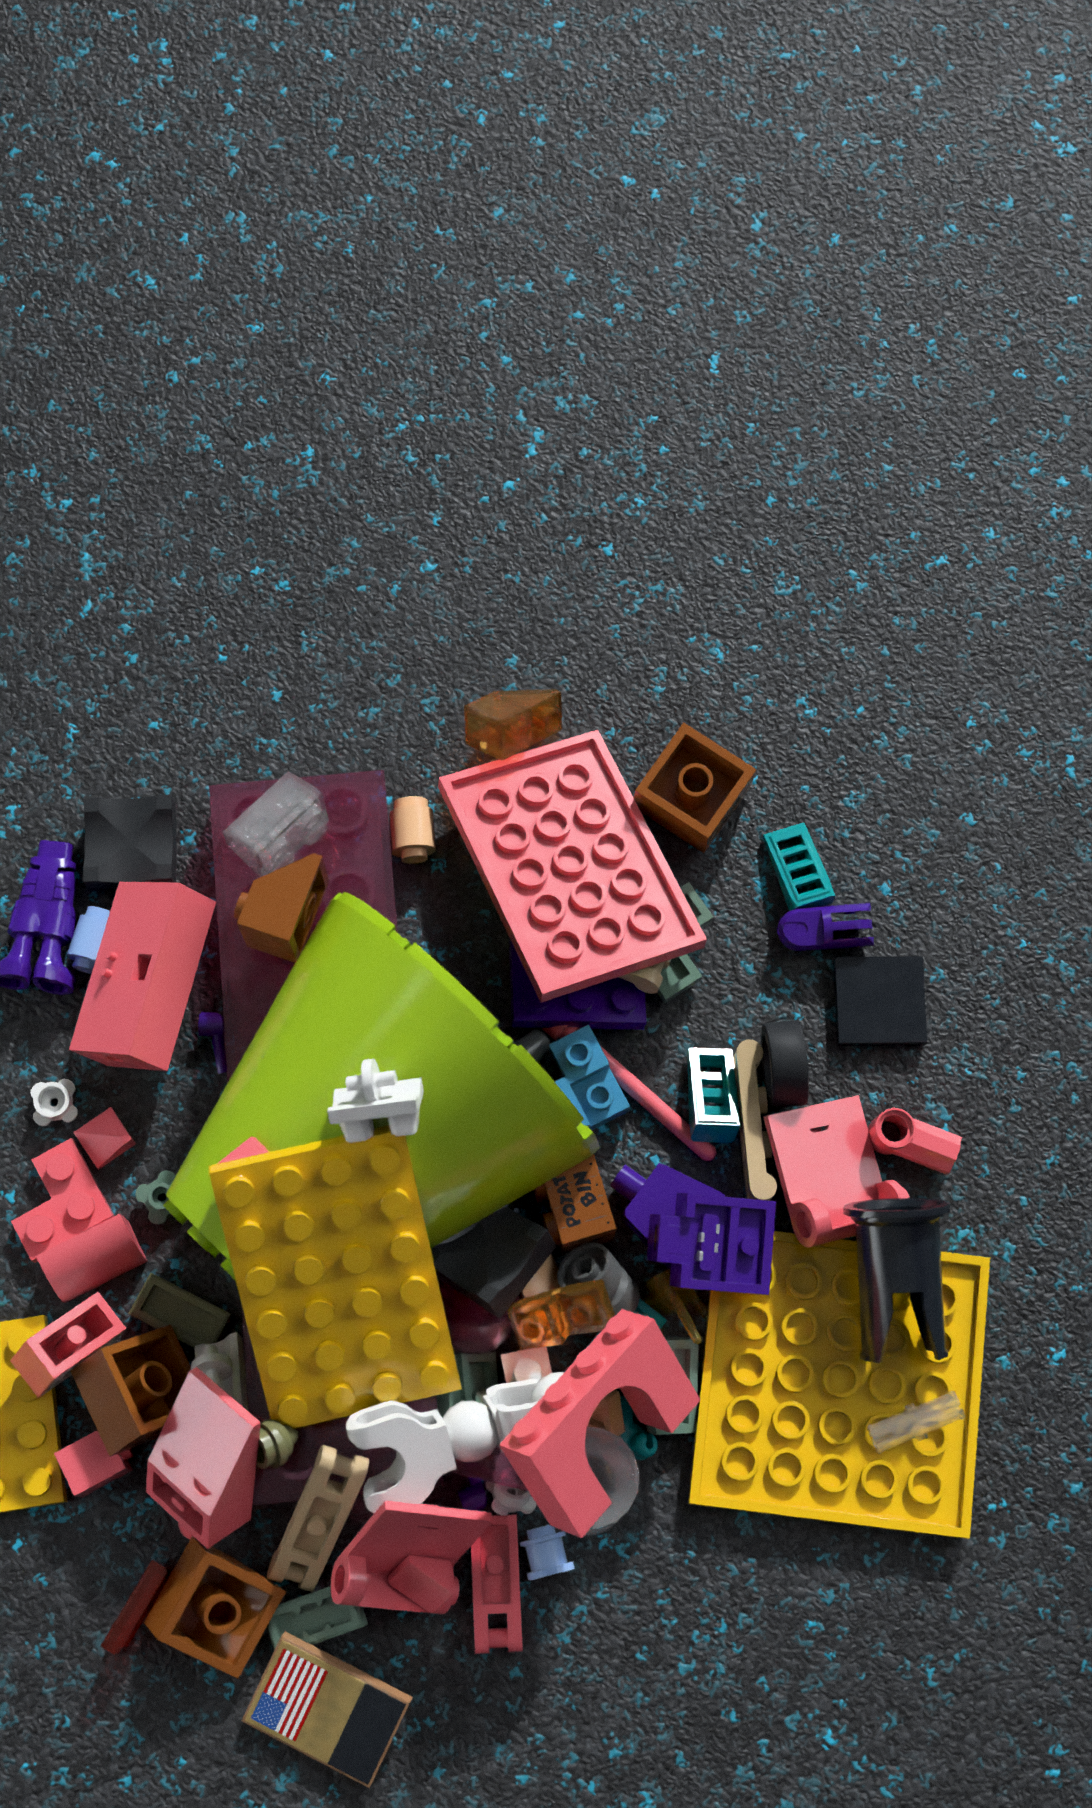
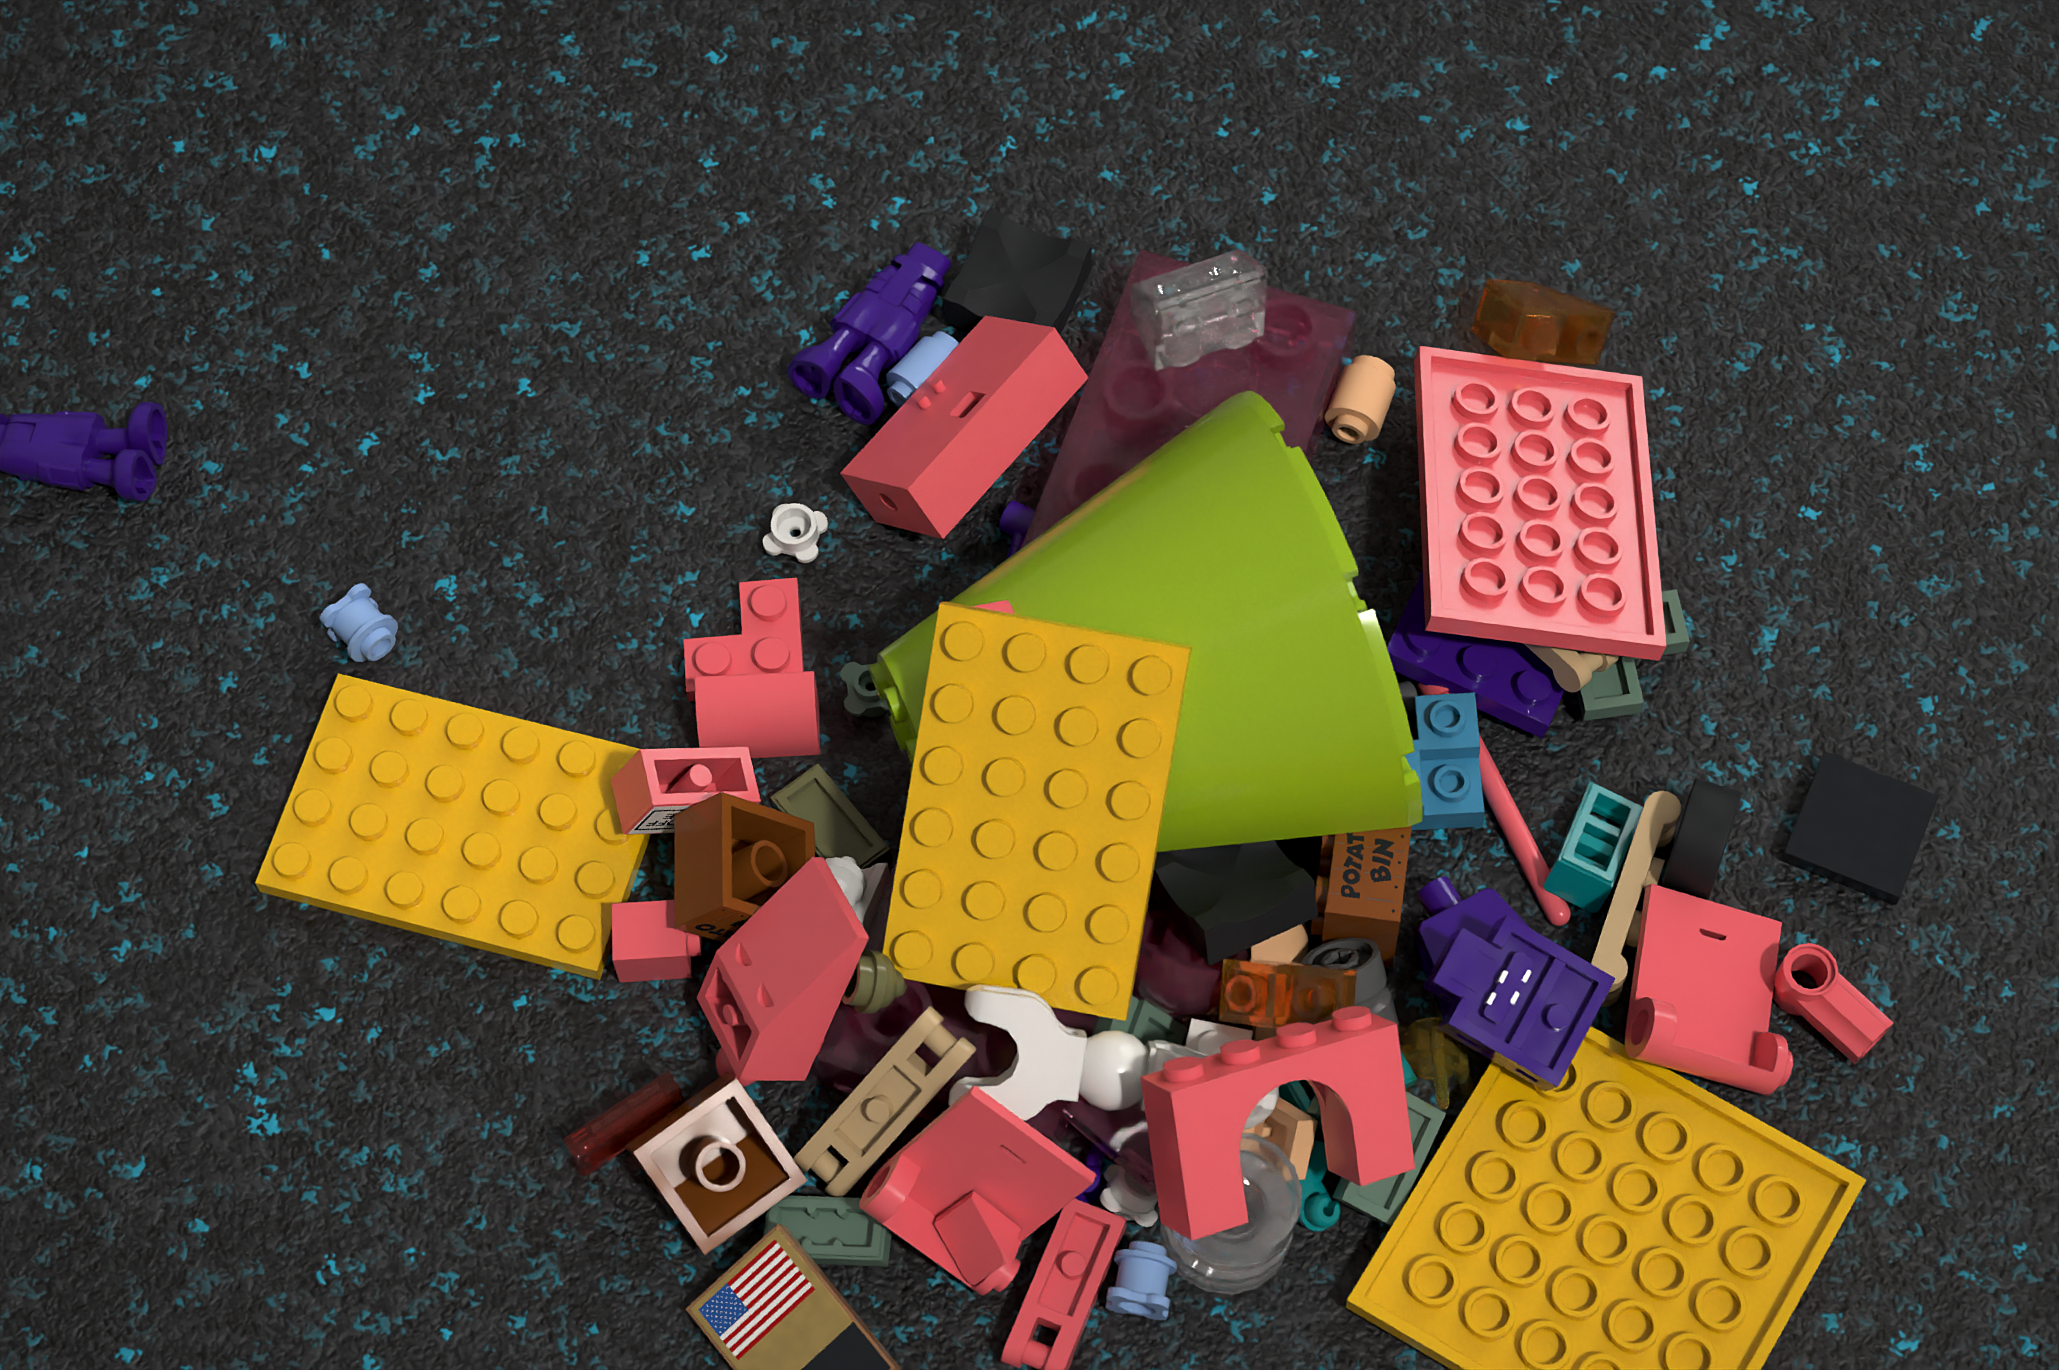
camera: 30 degrees right, 10 degrees down
(104, 1138) = (835, 597): coral slope -> none
(283, 907) = (1163, 388): dark orange slope -> none
(376, 1096) = (1143, 600): white hips -> none
(694, 787) = (1732, 483): dark orange brick -> none
(813, 928) = (1829, 712): dark purple arm -> none
(824, 893) = (1818, 672): teal slope -> none
(899, 1255) = (1749, 1101): black piece -> none
(916, 1422) = (1679, 1324): clear pin -> none

